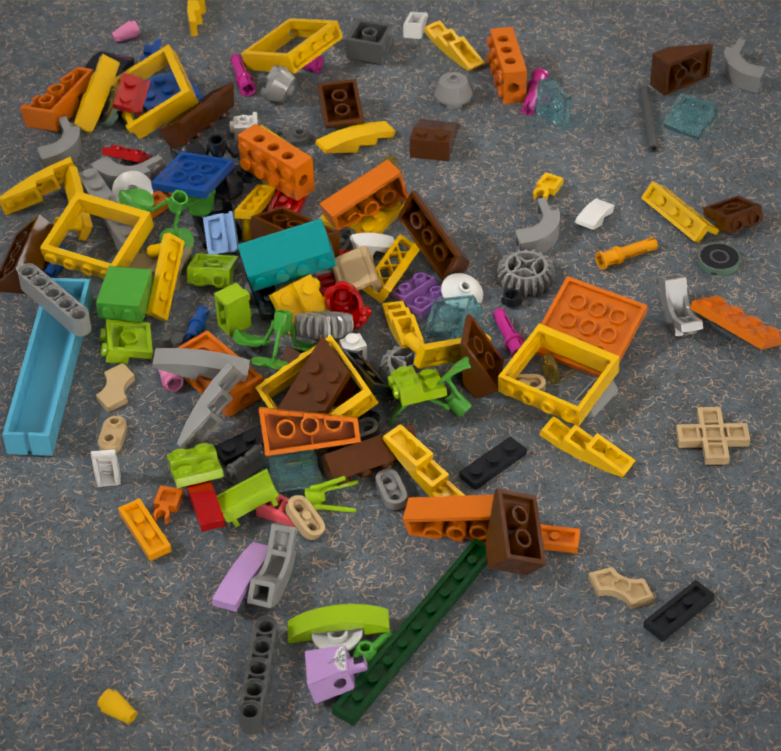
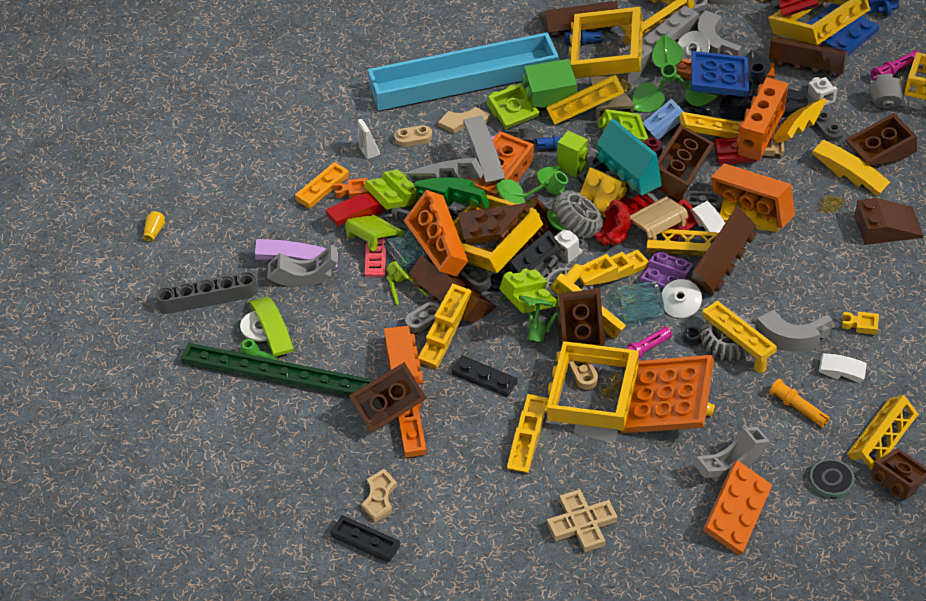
camera: 70 degrees right, 5 degrees up
(54, 299) = (515, 42): light grey beam -> none
(126, 154) = (733, 30): red plate -> none
(236, 411) = (453, 190): none -> green slope
(305, 518) = (366, 272): tan plate -> none
(331, 671) = (216, 329): lavender torso -> none
(537, 255) = (741, 333): none -> yellow piece

